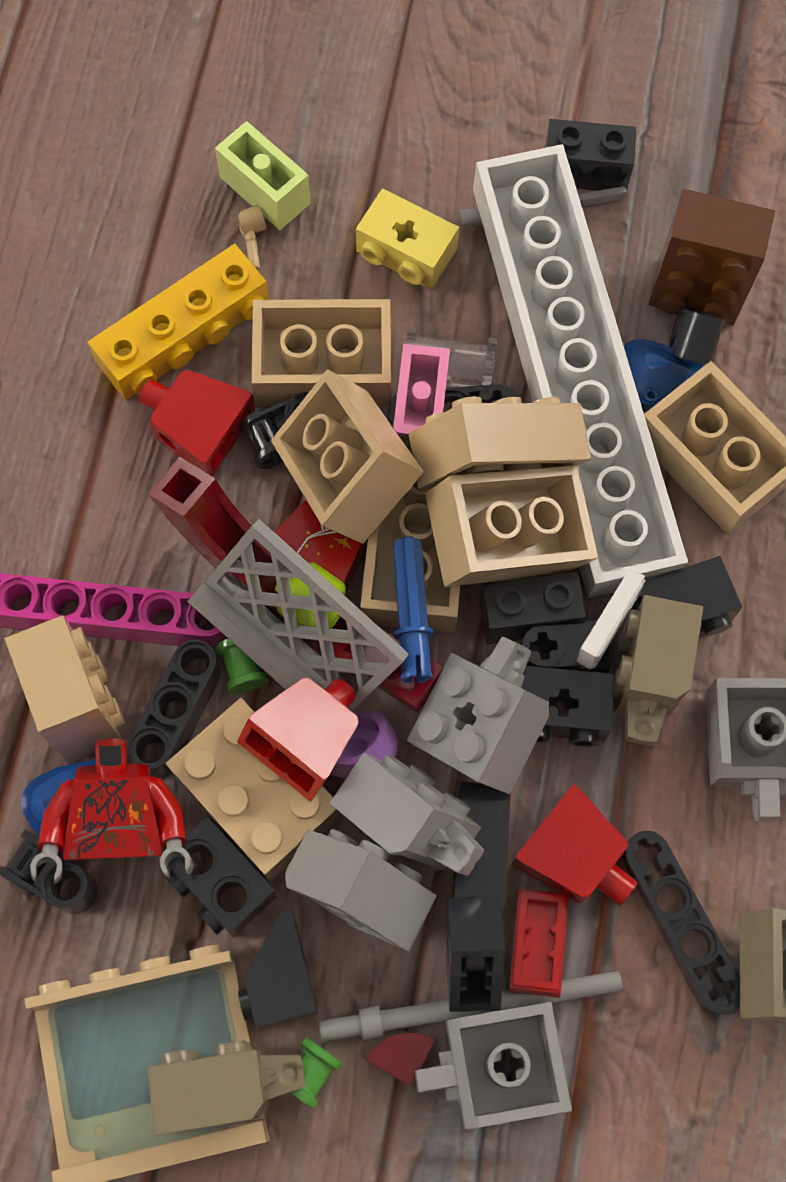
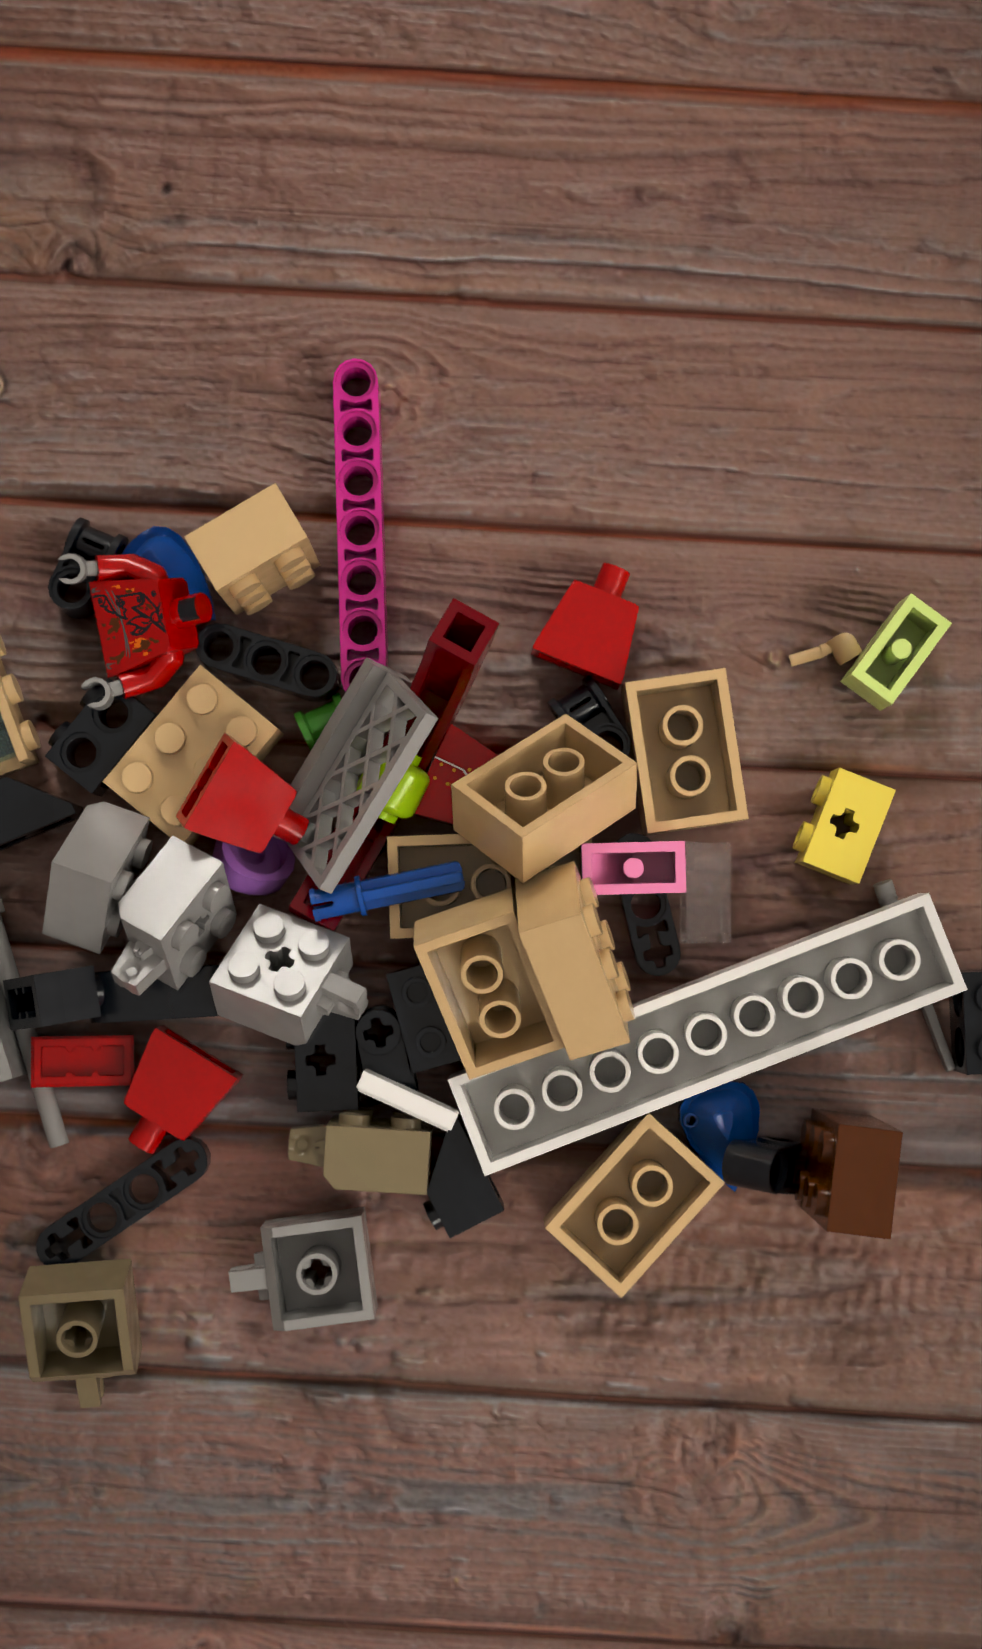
camera: 80 degrees right, 15 degrees up
(179, 322) = (703, 591): yellow brick -> none

